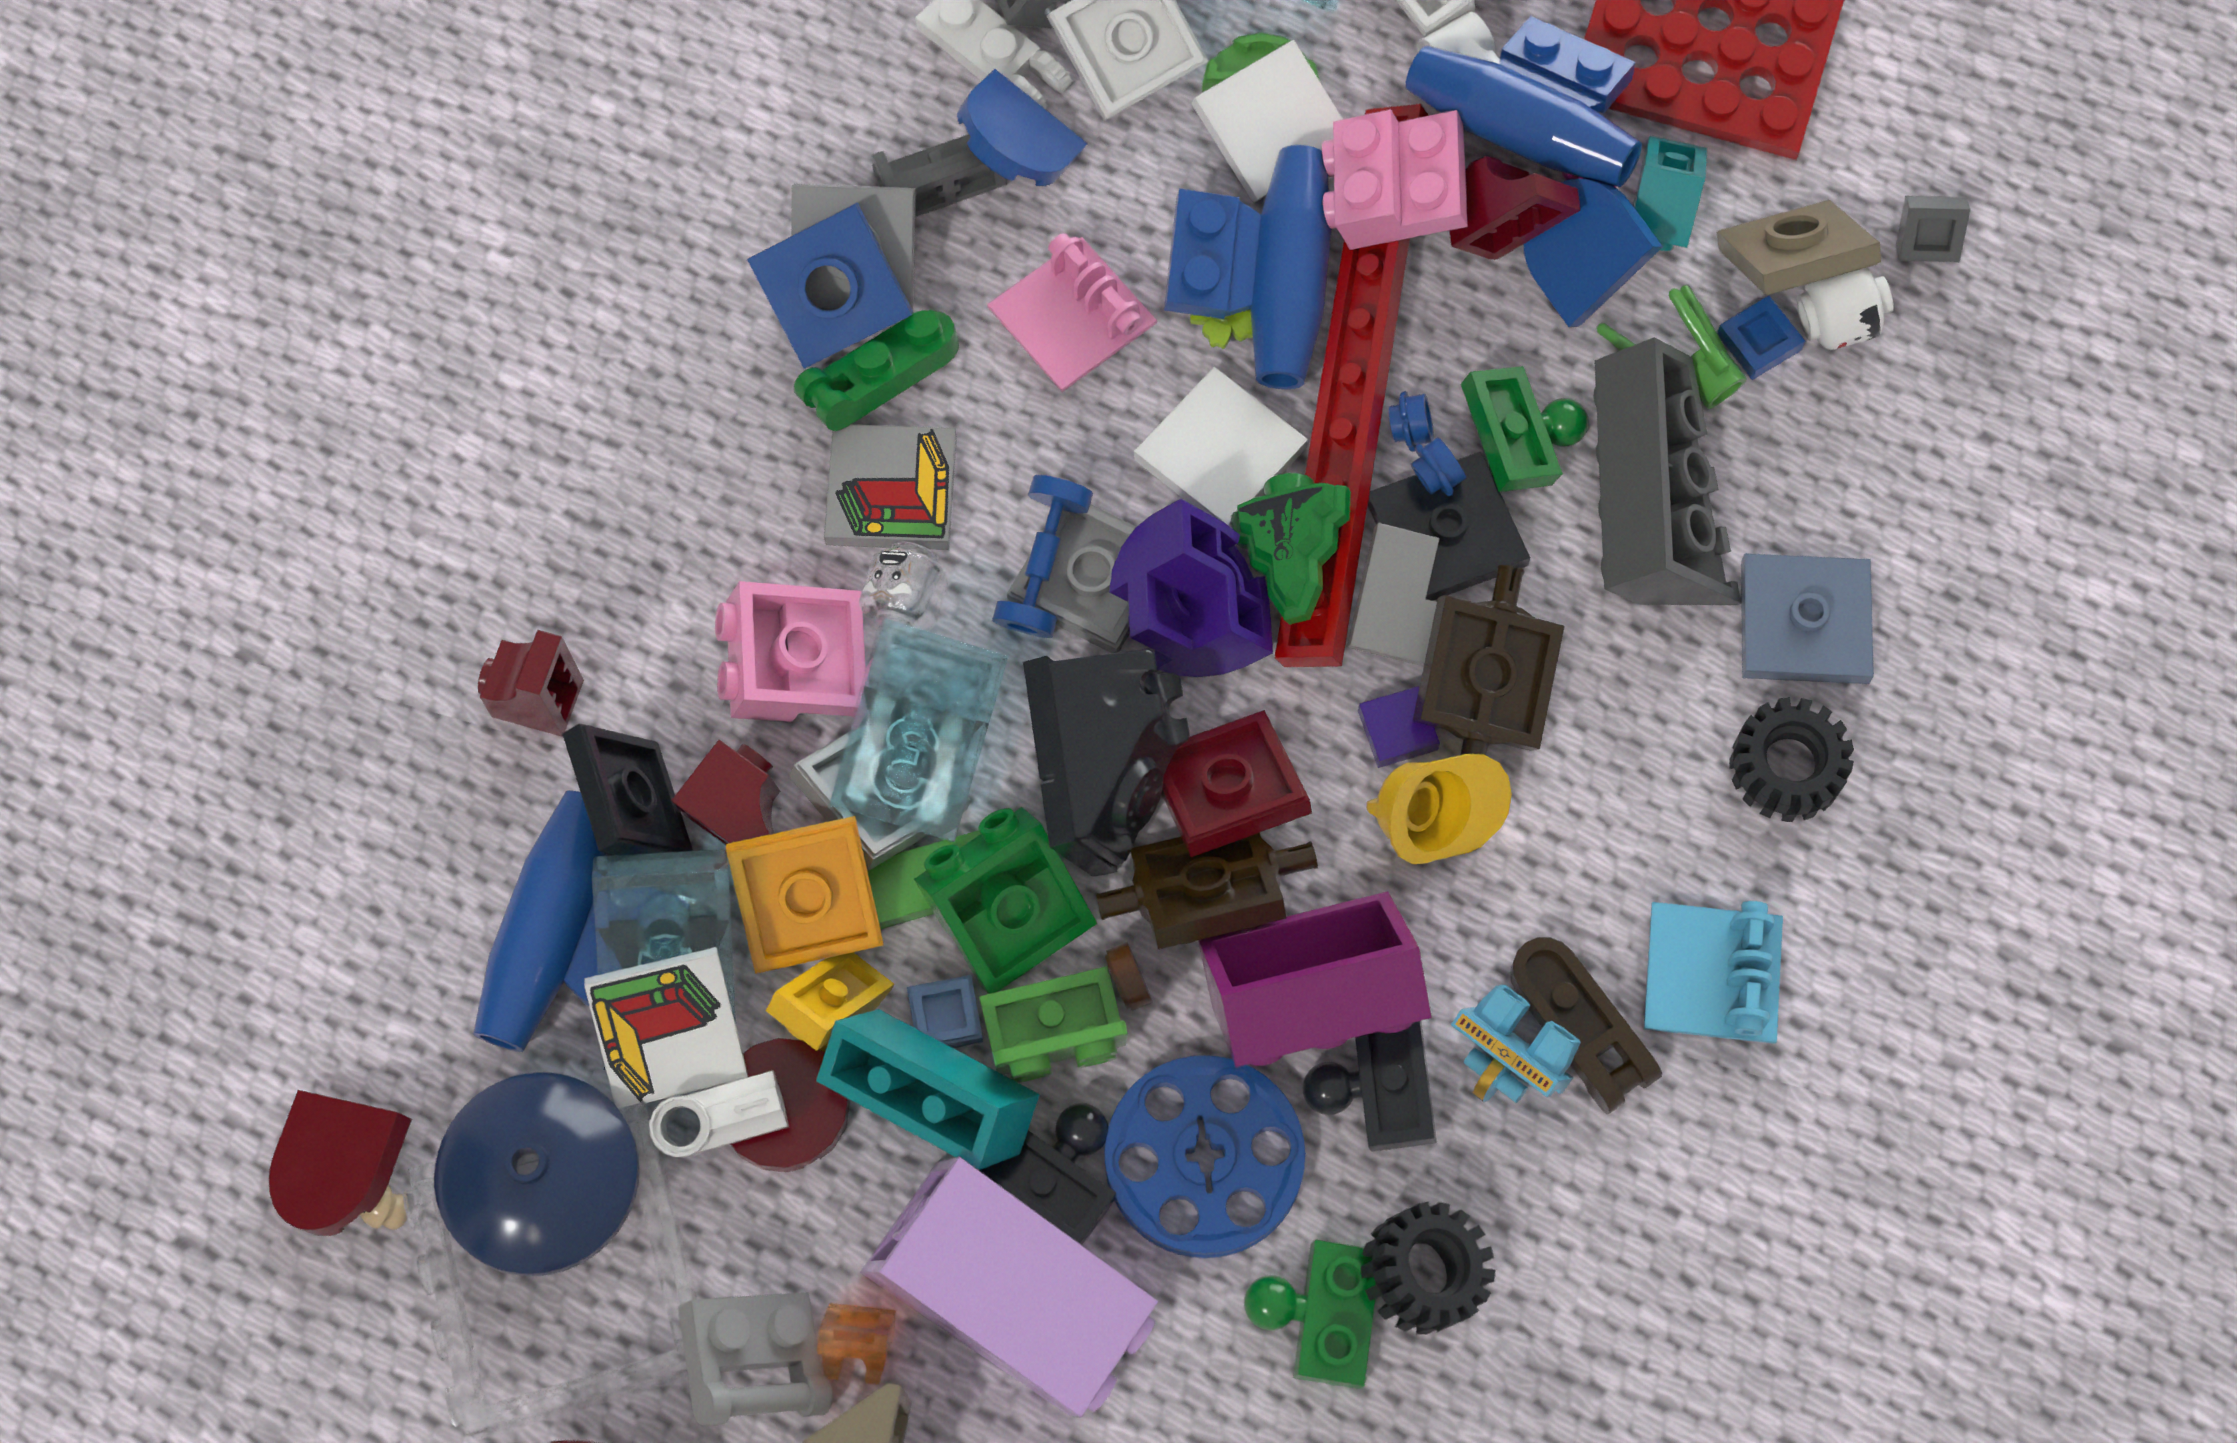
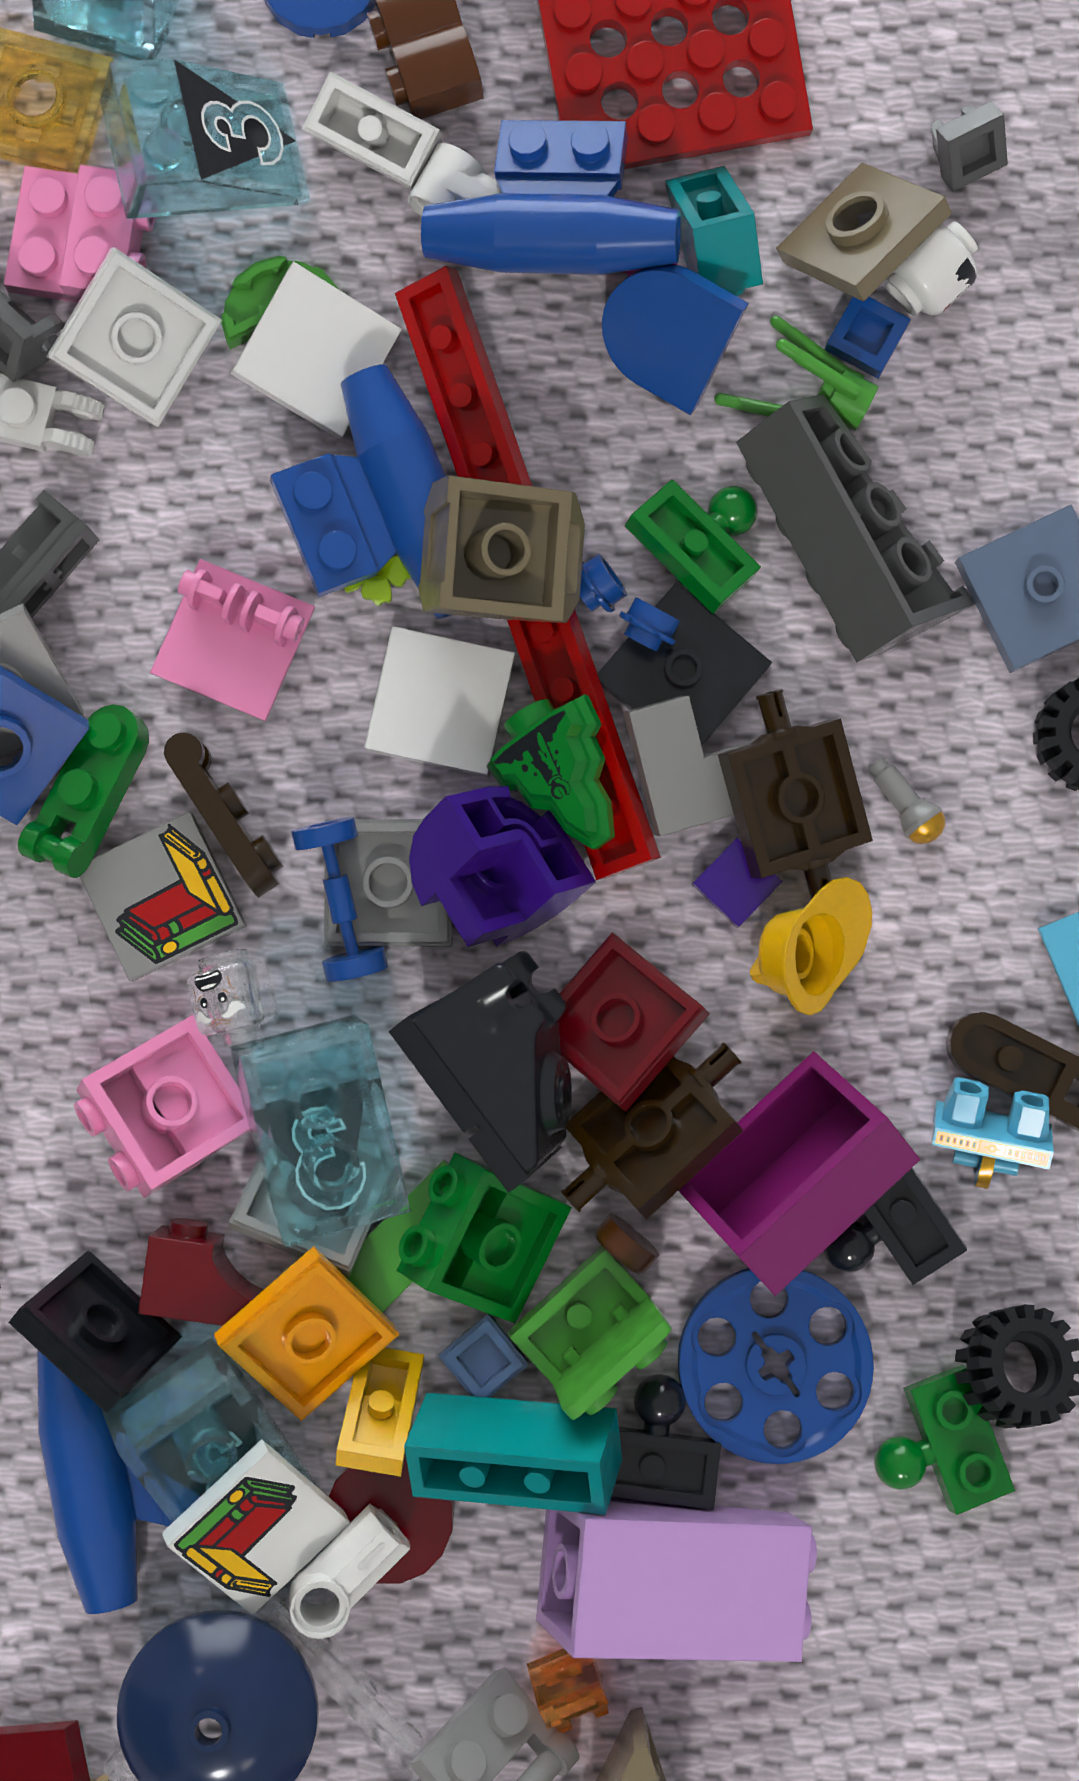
camera: 25 degrees left, 15 degrees up
(983, 438) = (222, 812): none -> dark brown plate
(1016, 133) = (84, 493): blue tile -> none
(1342, 337) = (501, 551): none -> dark tan slope
(1395, 177) = (465, 356): bright pink plate -> none
(1509, 208) = (572, 334): dark red arch -> none
(1593, 754) = (919, 818): none -> light grey piece

